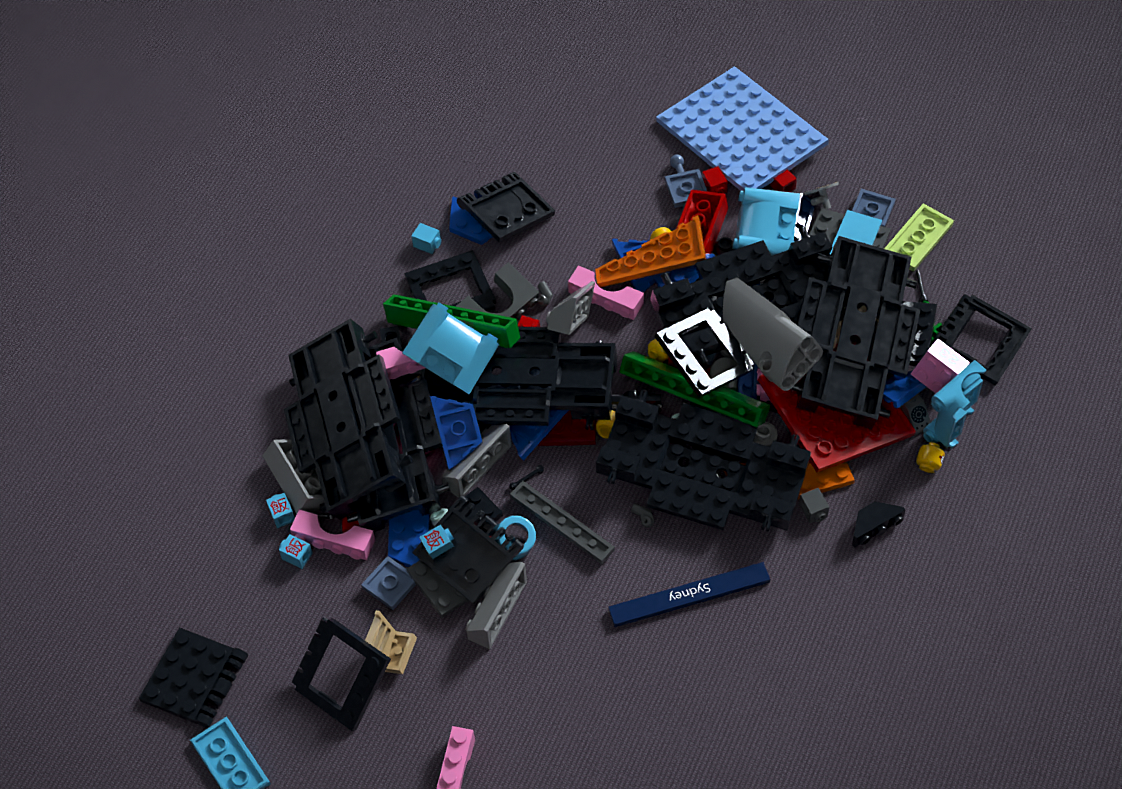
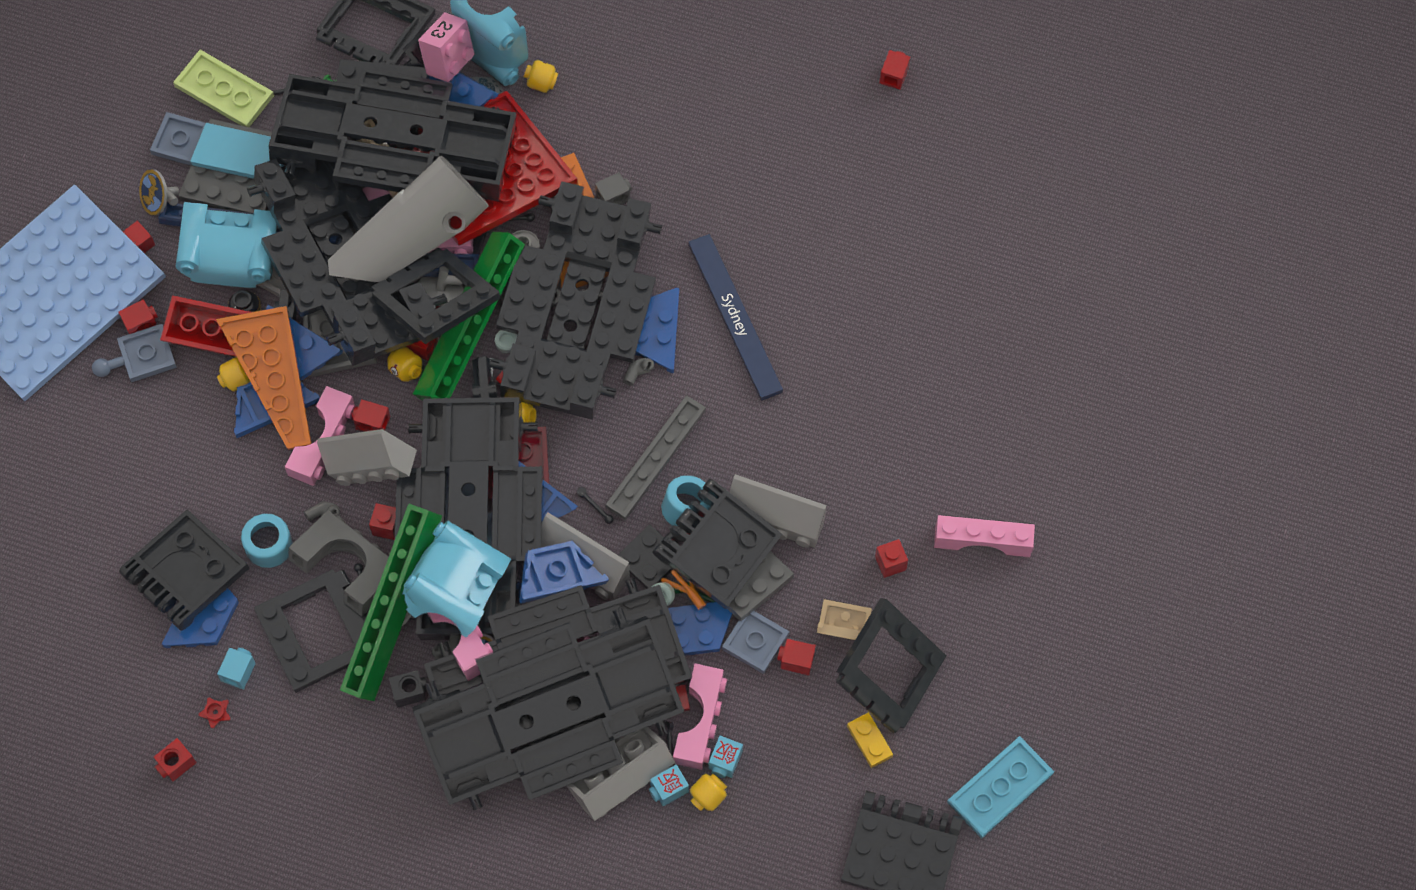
camera: 100 degrees left, 10 degrees up
(269, 536) = (708, 792): none -> yellow head
(287, 663) = (869, 740): none -> yellow plate
(364, 202) = (174, 749): none -> red brick
(366, 610) = (796, 656): none -> red brick
(398, 225) = (211, 706): none -> red plate
(437, 541) = (719, 571): medium azure brick -> none
(444, 693) = (891, 558): none -> red brick
(528, 245) = (271, 556): none -> medium azure piece
(617, 326) = (370, 416): none -> red brick
(680, 534) = (660, 330): none -> blue wing
(875, 520) = (629, 133): black slope -> none
(940, 753) = (895, 69): none -> red brick

